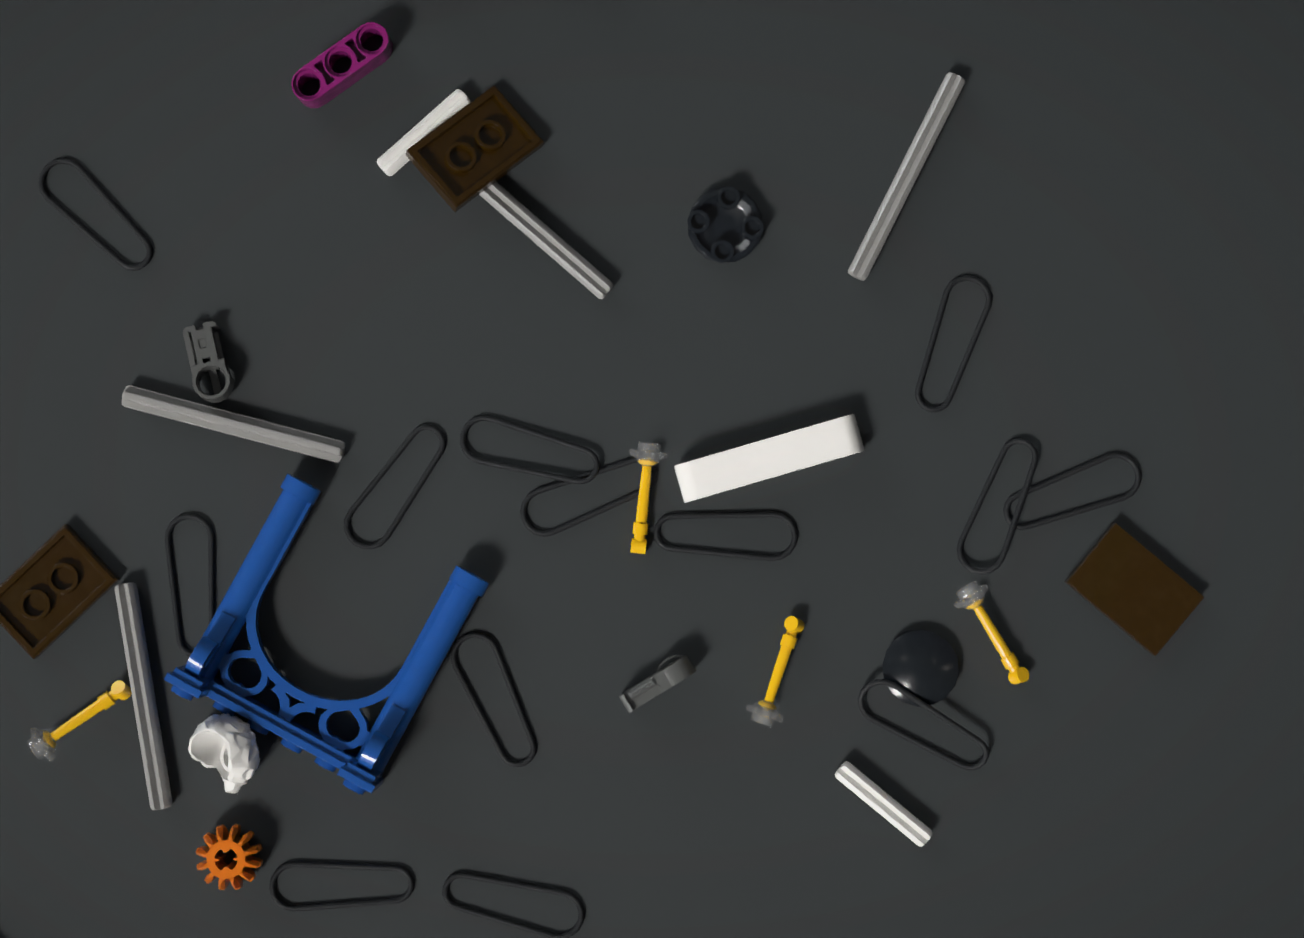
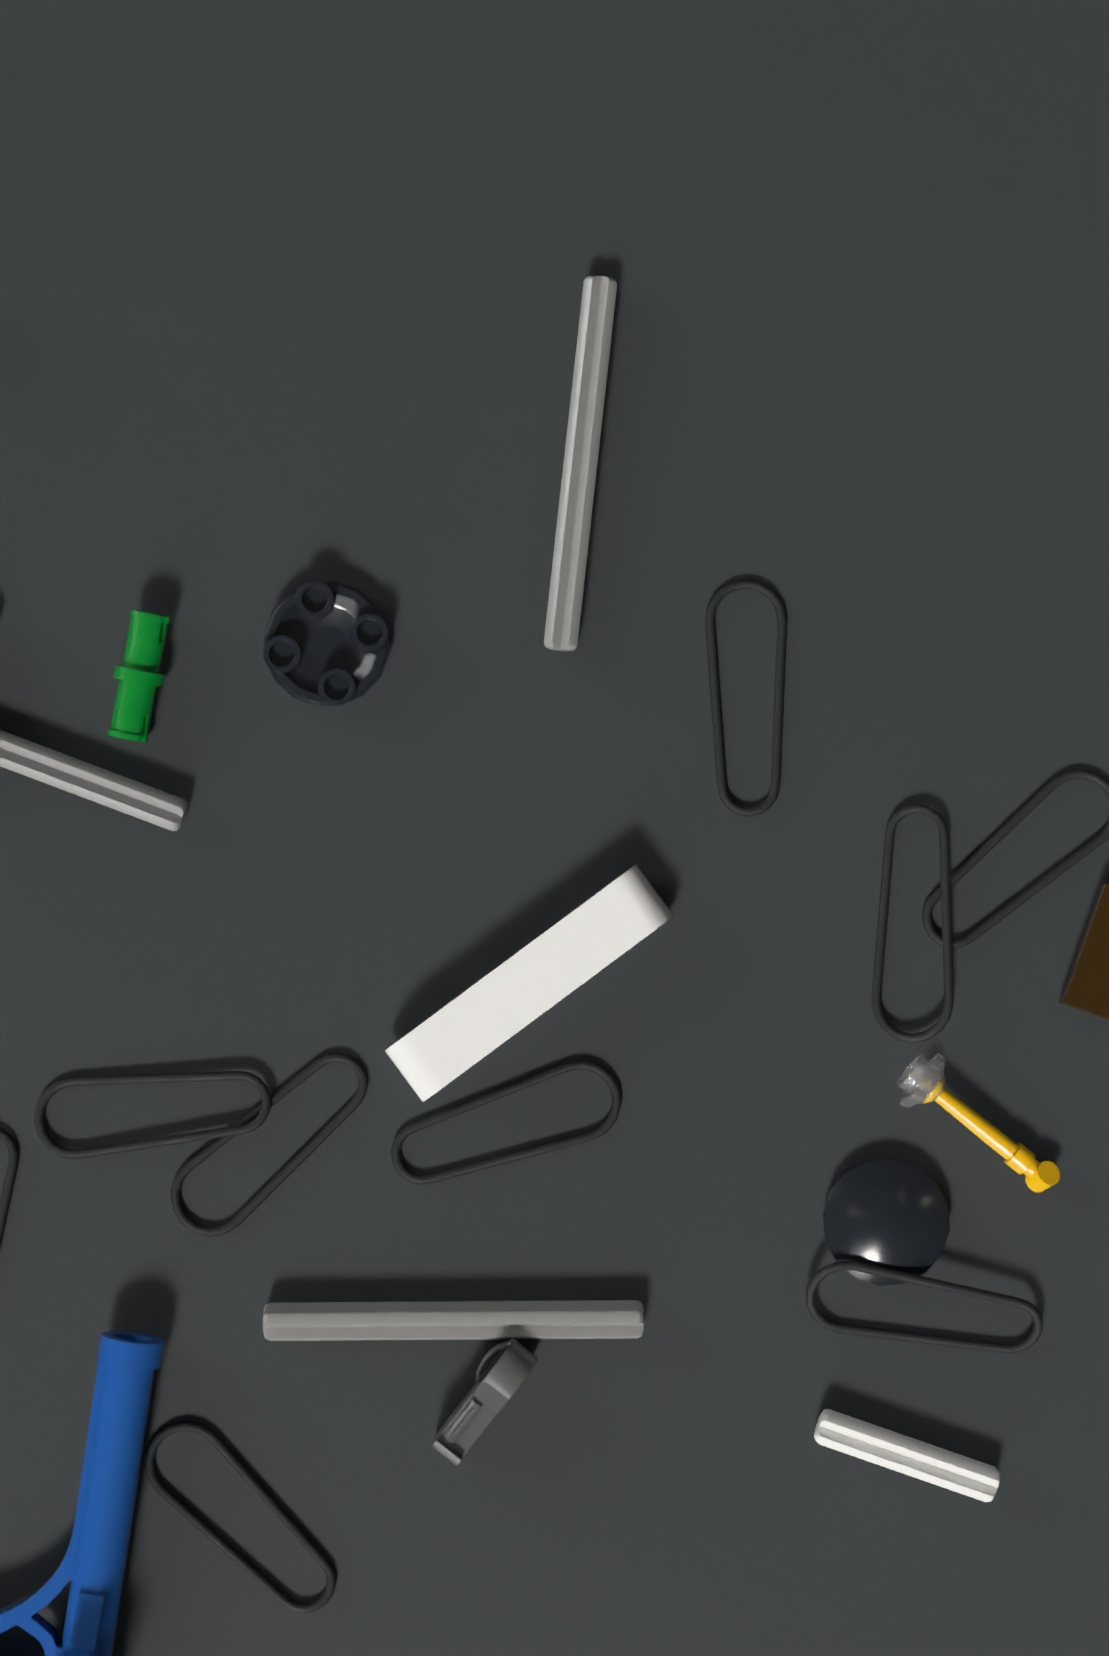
camera: 25 degrees left, 0 degrees up
(613, 204) = (139, 676): none -> green pin
(647, 455) = (338, 1049): yellow piece -> none
(656, 632) = (453, 1320): none -> light grey axle
(764, 710) = (669, 1381): yellow piece -> none

